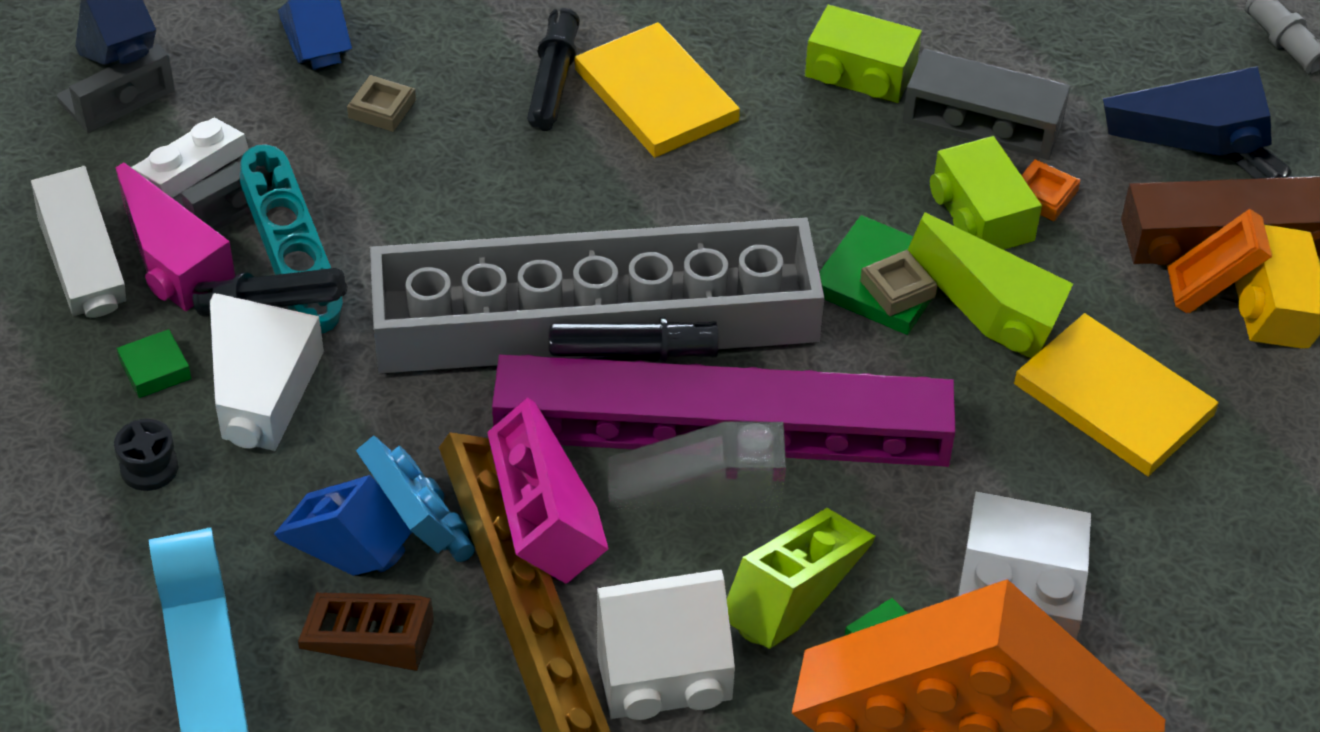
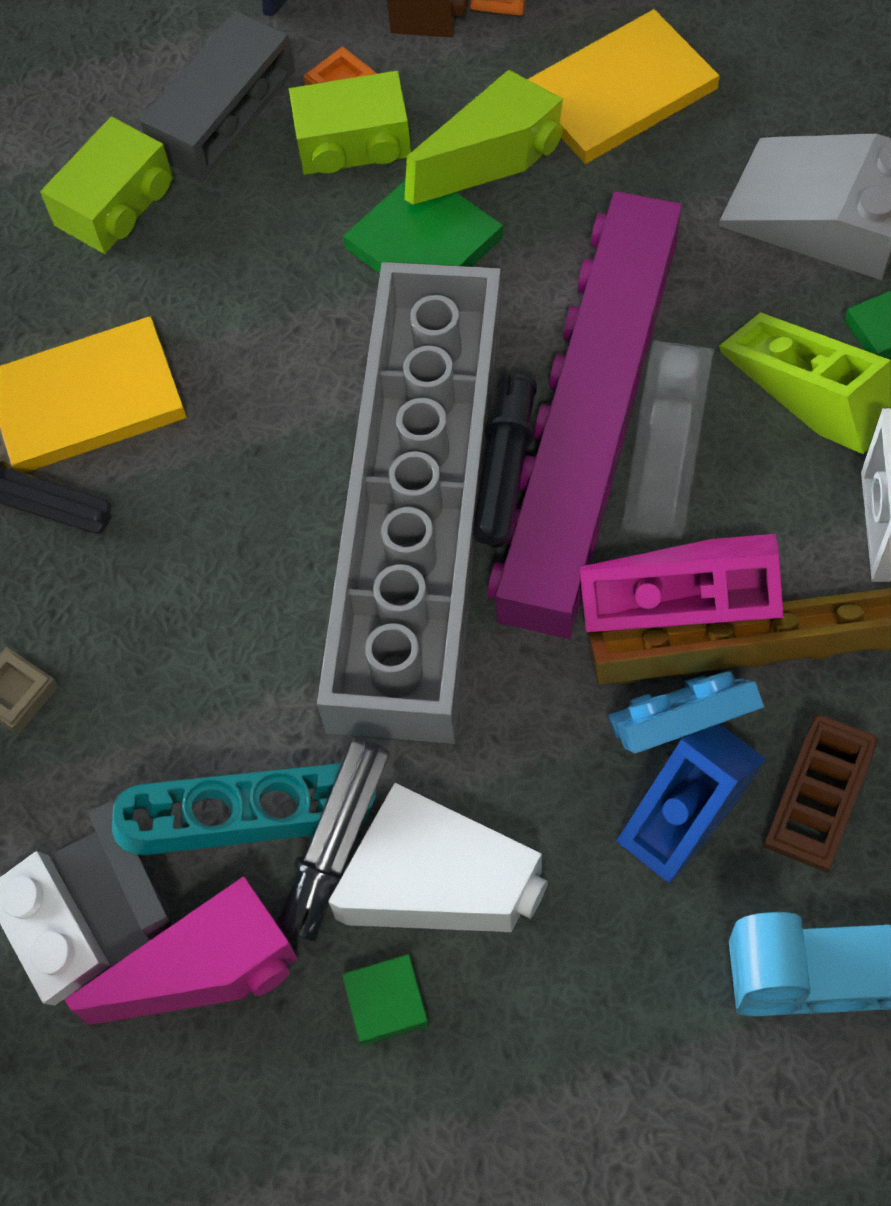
camera: 70 degrees left, 15 degrees up
(78, 242) = (185, 1072): white slope -> none
(149, 440) = (539, 1000): black wheel -> none
(898, 282) = (455, 219): dark tan tile -> none

